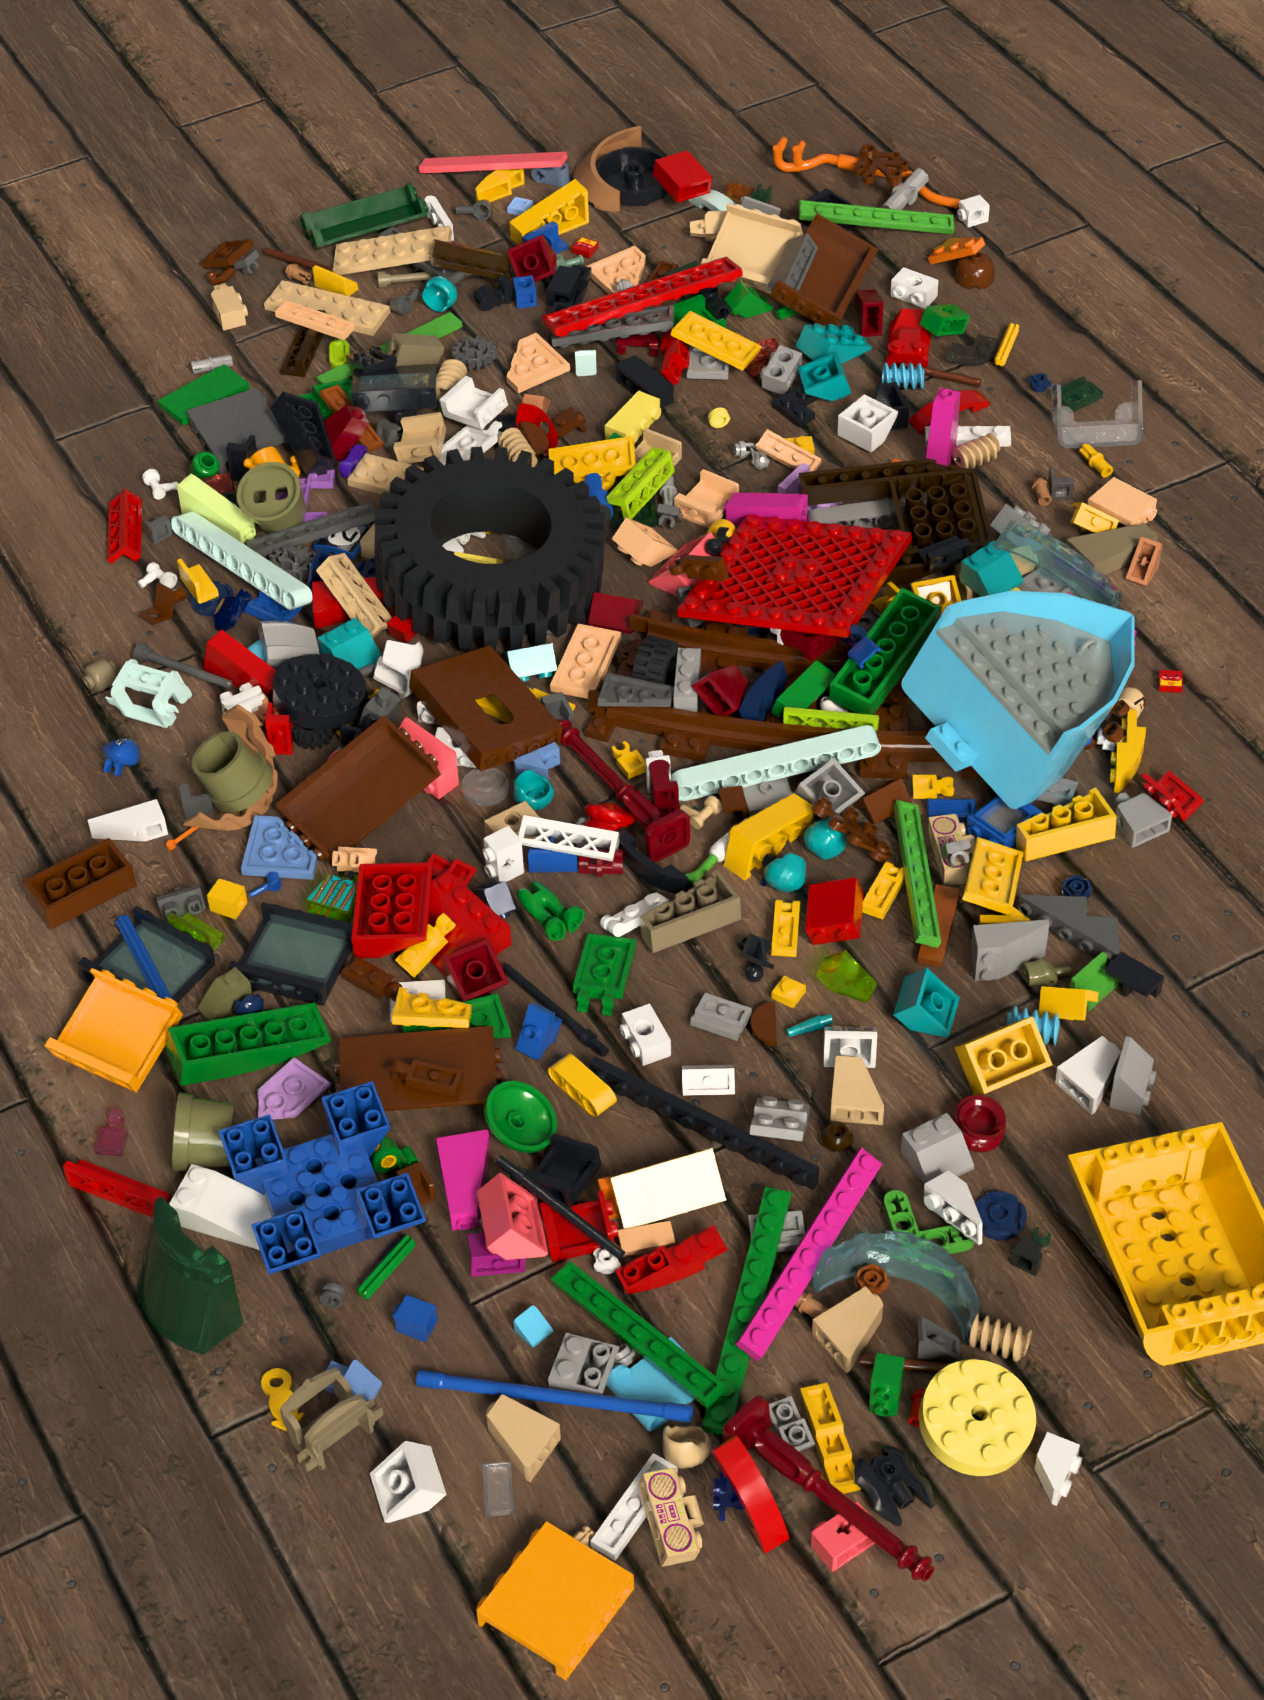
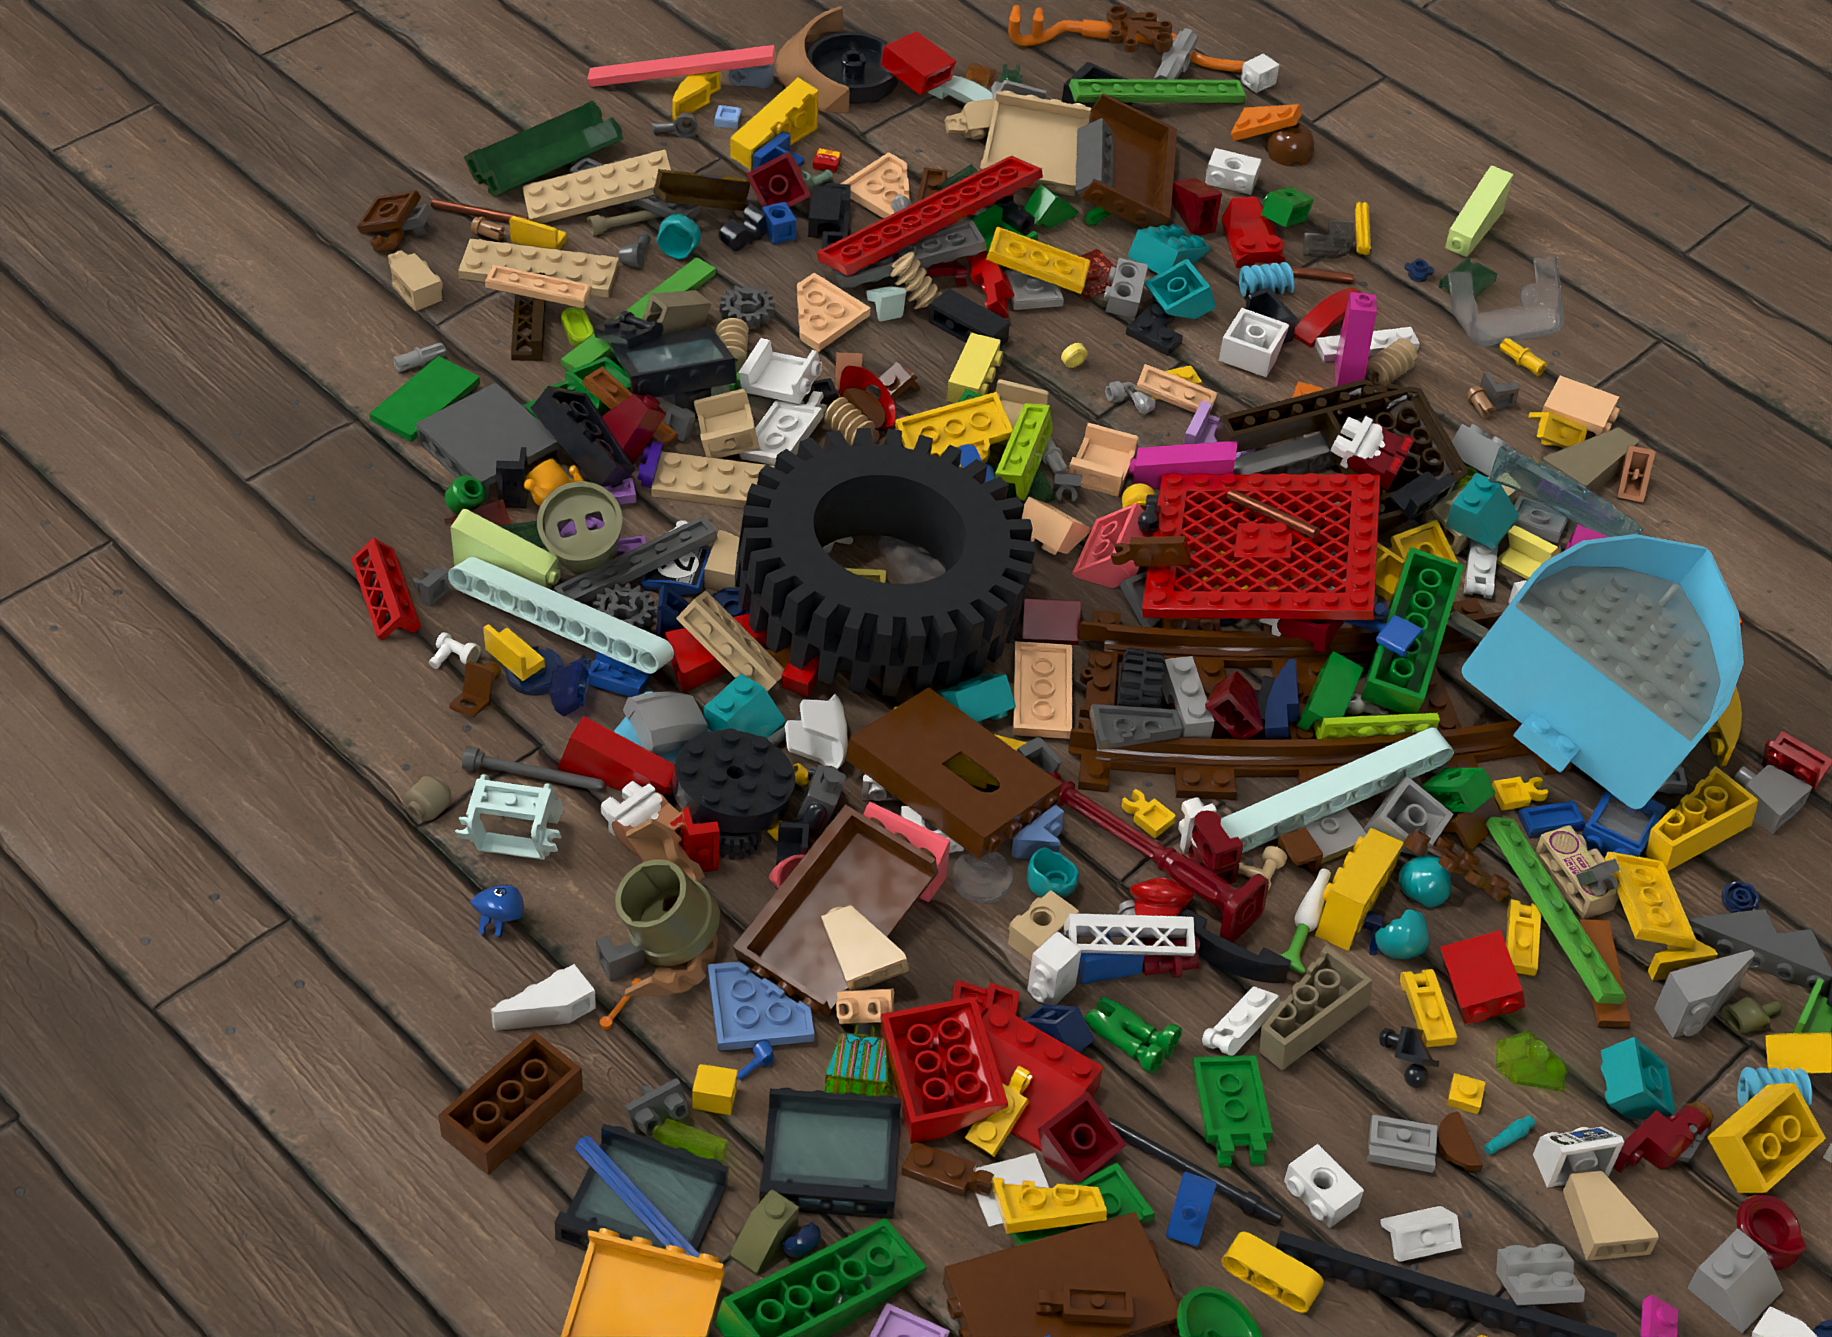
camera: 20 degrees left, 0 degrees up
(151, 478) = (398, 517): white piece -> none
(362, 819) = (861, 949): none -> tan slope
(437, 214) = (636, 137): white plate -> none
(608, 346) = (915, 280): none -> tan piece
(809, 550) = (1273, 513): none -> copper bar
(834, 1143) = (1601, 1288): dark brown plate -> none
(876, 775) = (1460, 788): none -> green brick
(913, 513) = (1372, 449): none -> hips
(924, 1046) = (1666, 1139): none -> dark red plate
(1109, 341) = (1480, 211): none -> yellowish green slope

